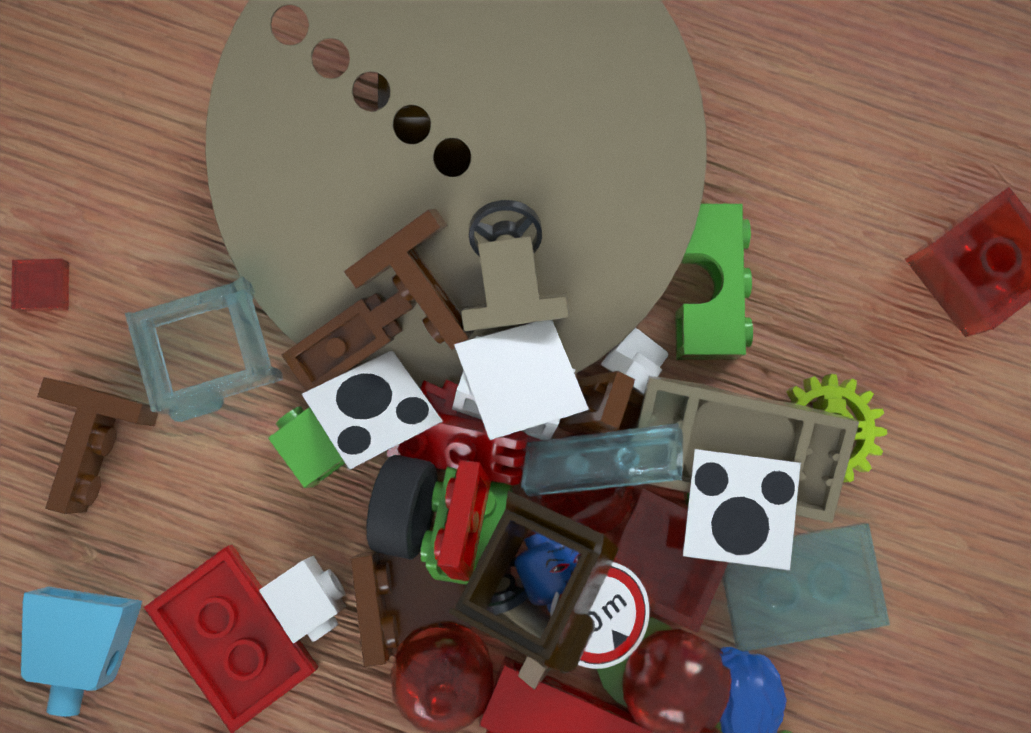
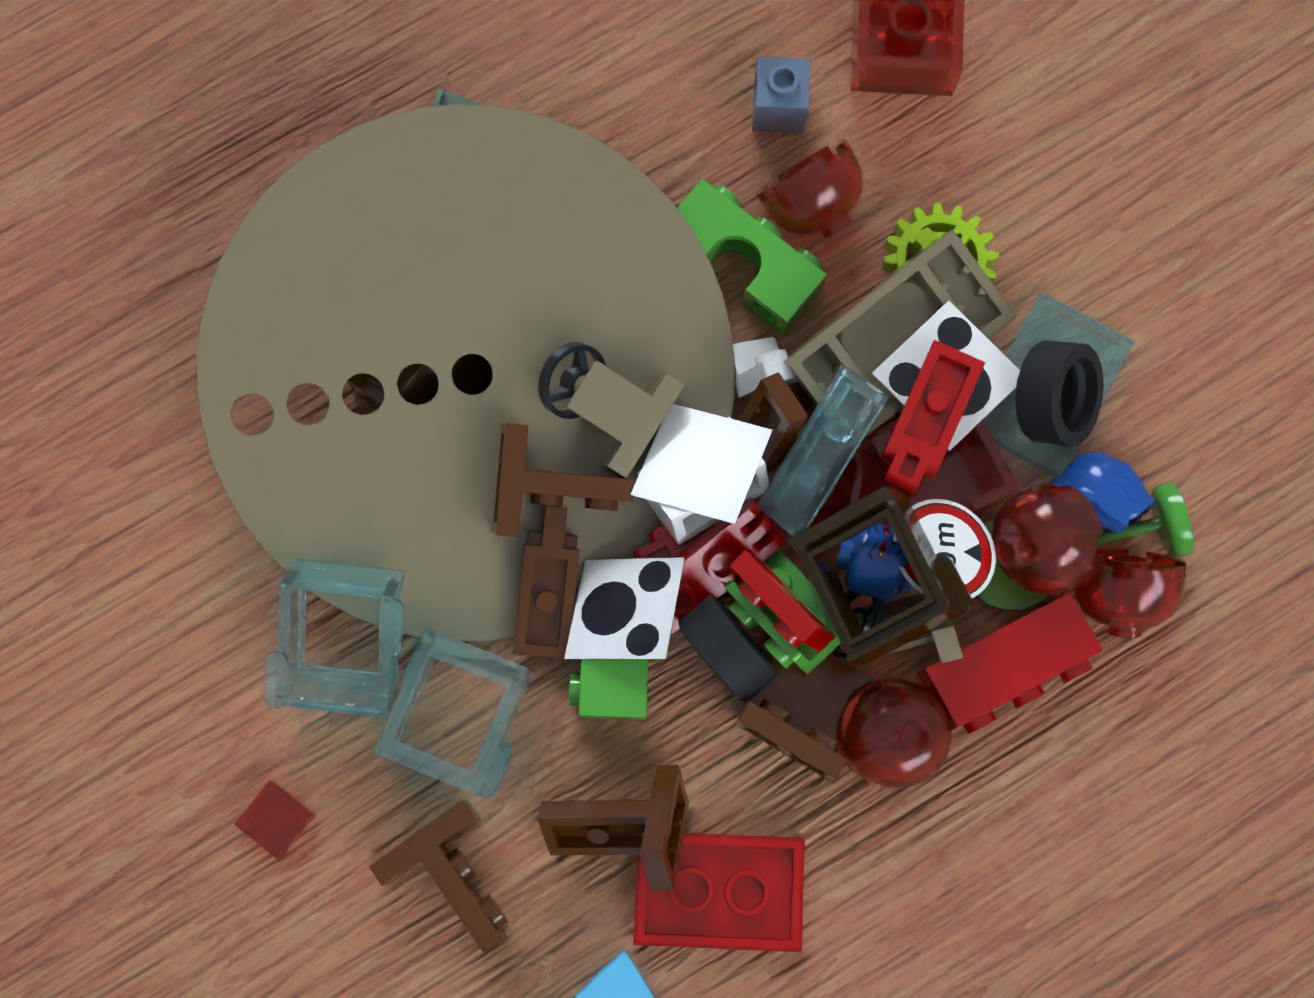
camera: 50 degrees left, 5 degrees down
(151, 241) = (328, 688): none -> clear light blue piece
(219, 539) = (624, 827): none -> reddish brown bracket
(305, 600) = (740, 795): white brick -> none
(696, 522) = (930, 415): none -> red hinge
(798, 604) = (1059, 392): none -> black tyre
(803, 296) = (816, 192): none -> clear red cylinder
(857, 210) = (781, 94): none -> sand blue brick

